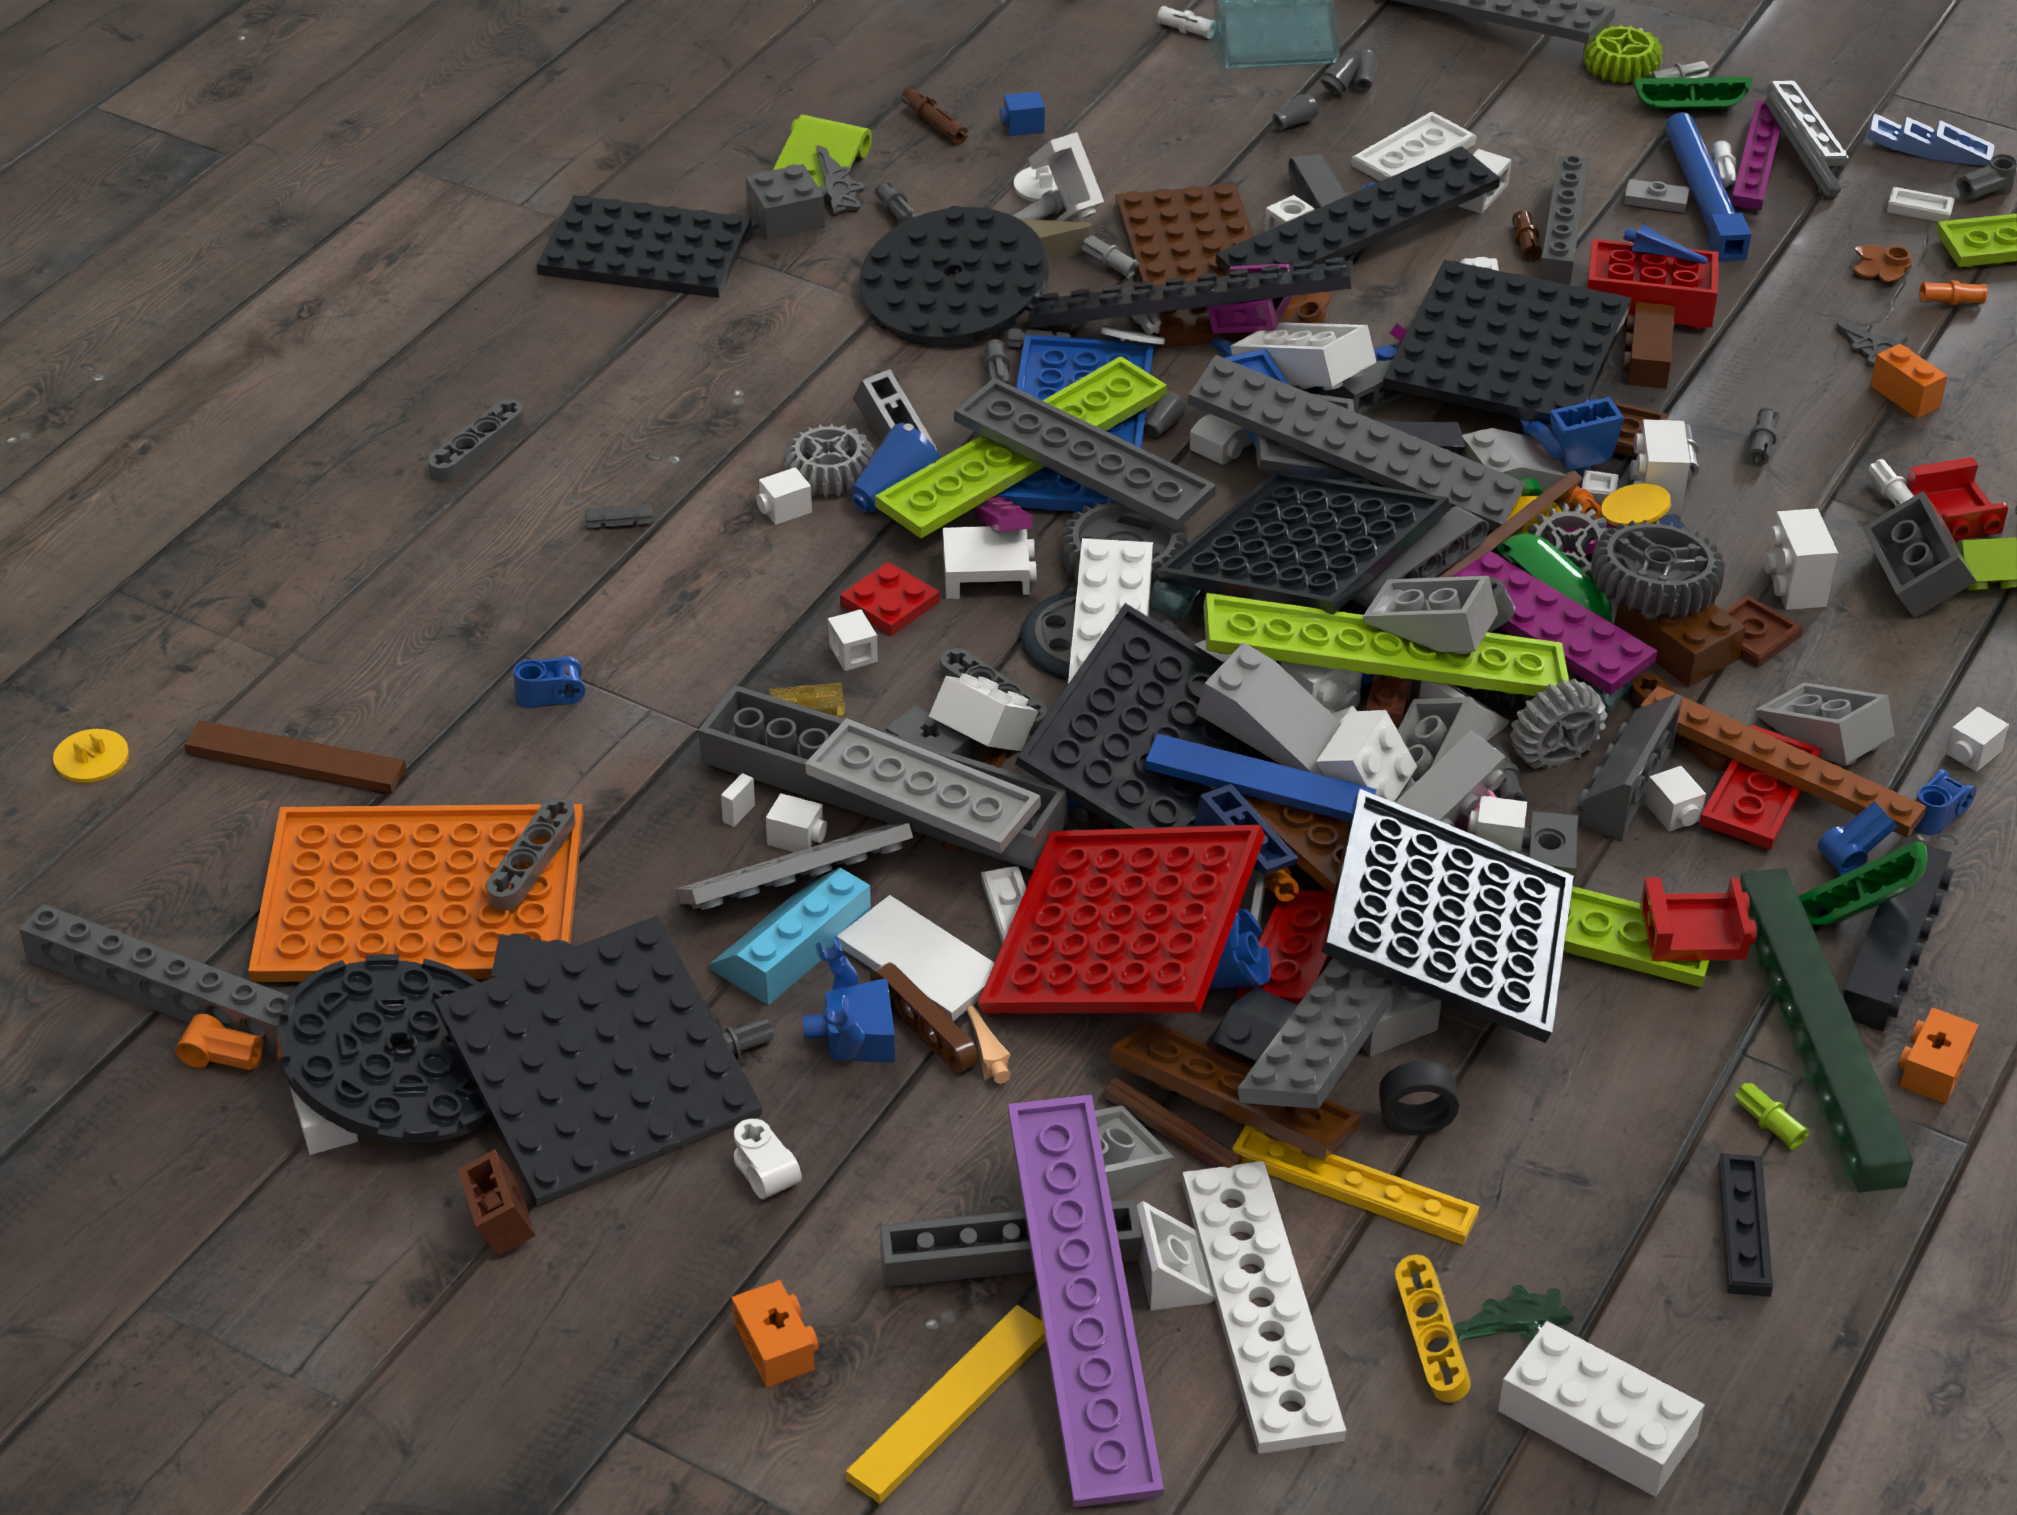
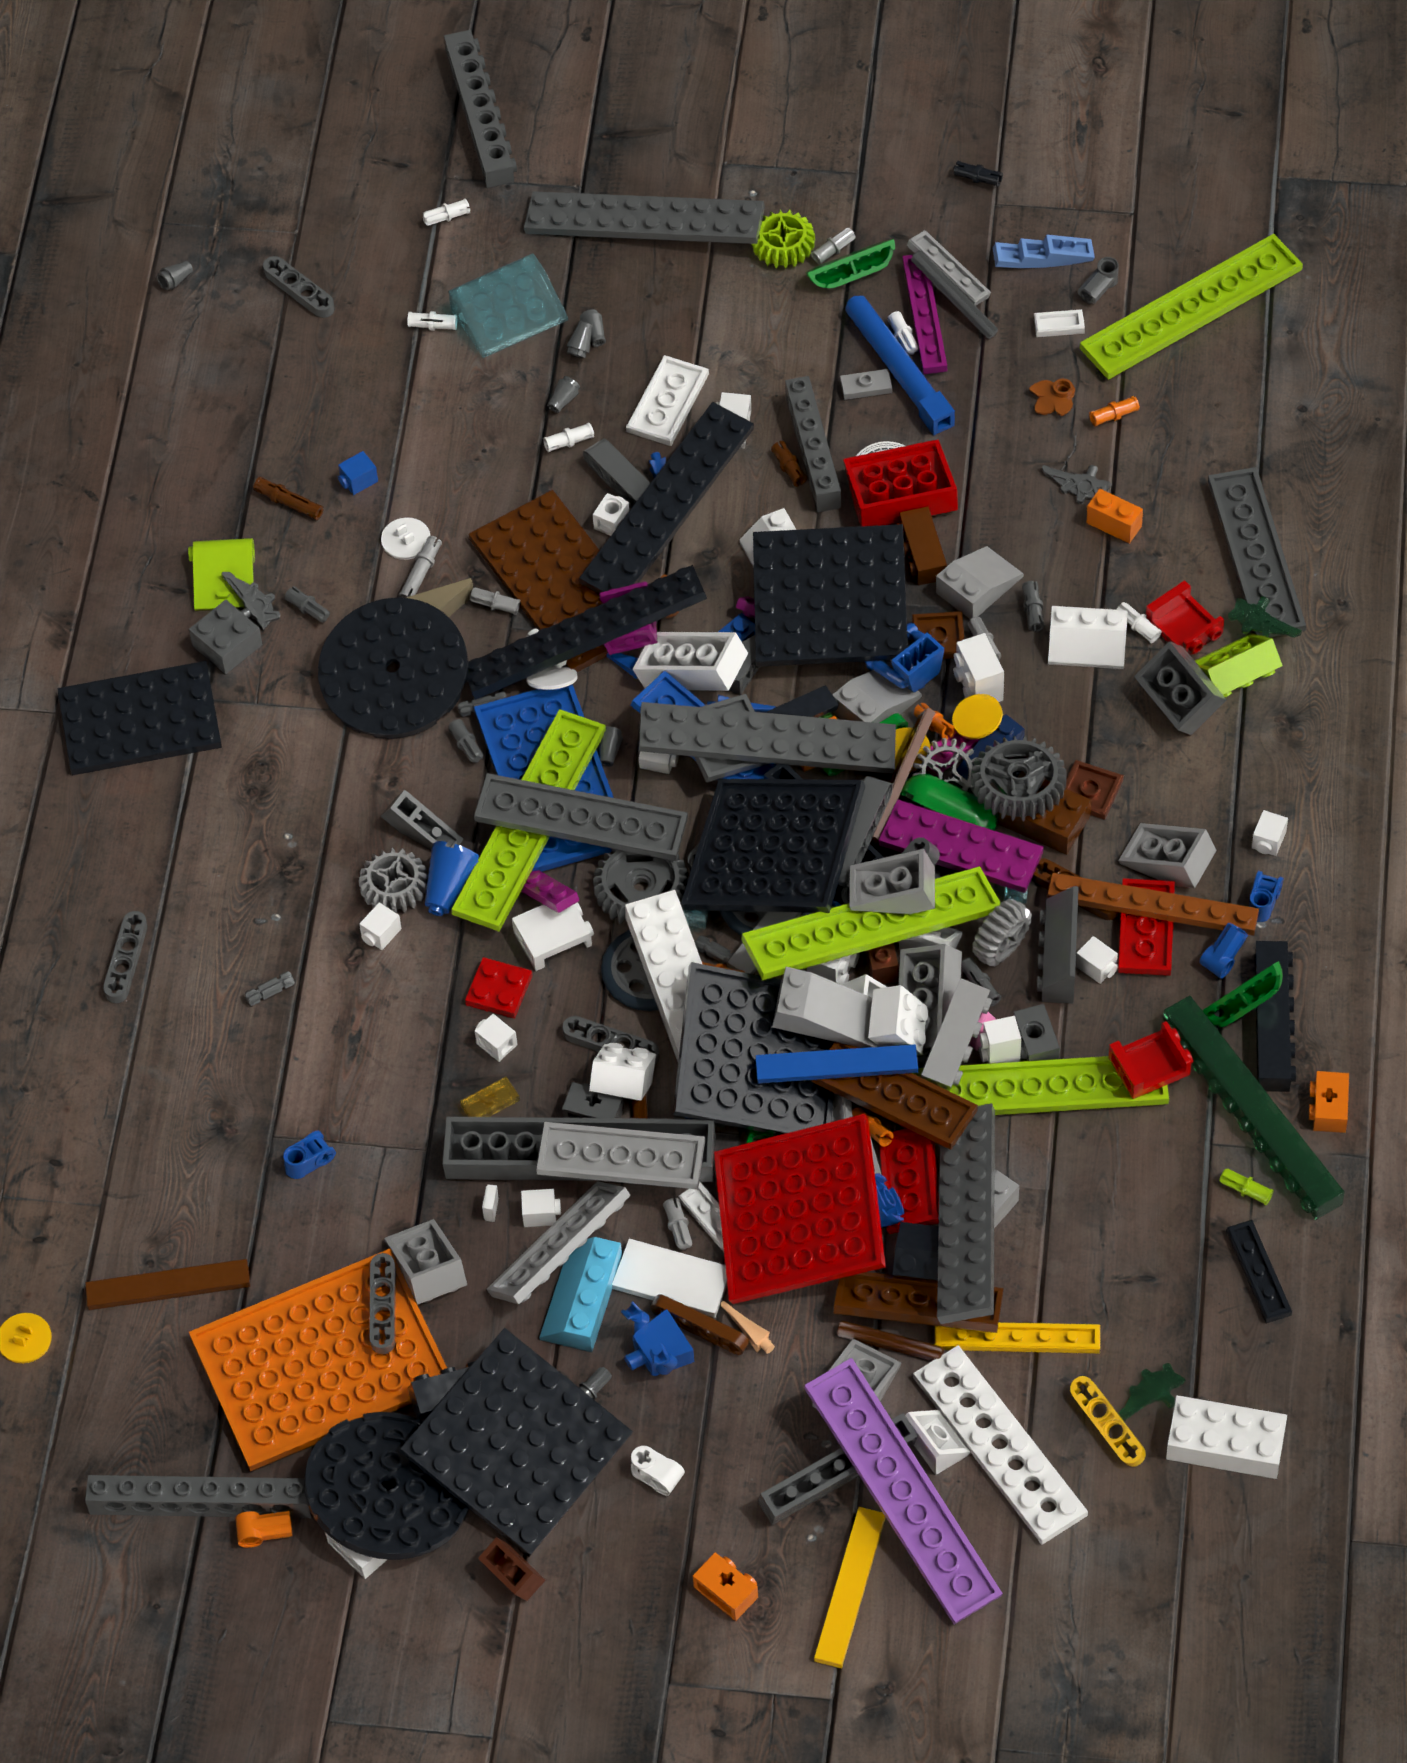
camera: 20 degrees left, 15 degrees up
(617, 836) = (427, 1261): none -> light grey slope
(962, 900) = (678, 1223): none -> light grey axle
(1071, 175) = (441, 544): white panel -> none
(1229, 808) = (830, 1103): dark blue slope -> none
(1279, 147) = (568, 437): none -> white pin
(1413, 1078) = (1035, 1264): black tyre -> none
(1450, 915) = (1003, 1125): plate -> none
(1599, 484) = (938, 696): white tile -> none
(1650, 241) = (892, 452): blue piece -> none
(1700, 393) = (976, 581): none -> light grey slope
(1801, 559) = (1104, 721): white brick -> none
(1821, 477) = (1087, 637): none -> white slope
(1882, 60) = (978, 173): none -> black pin

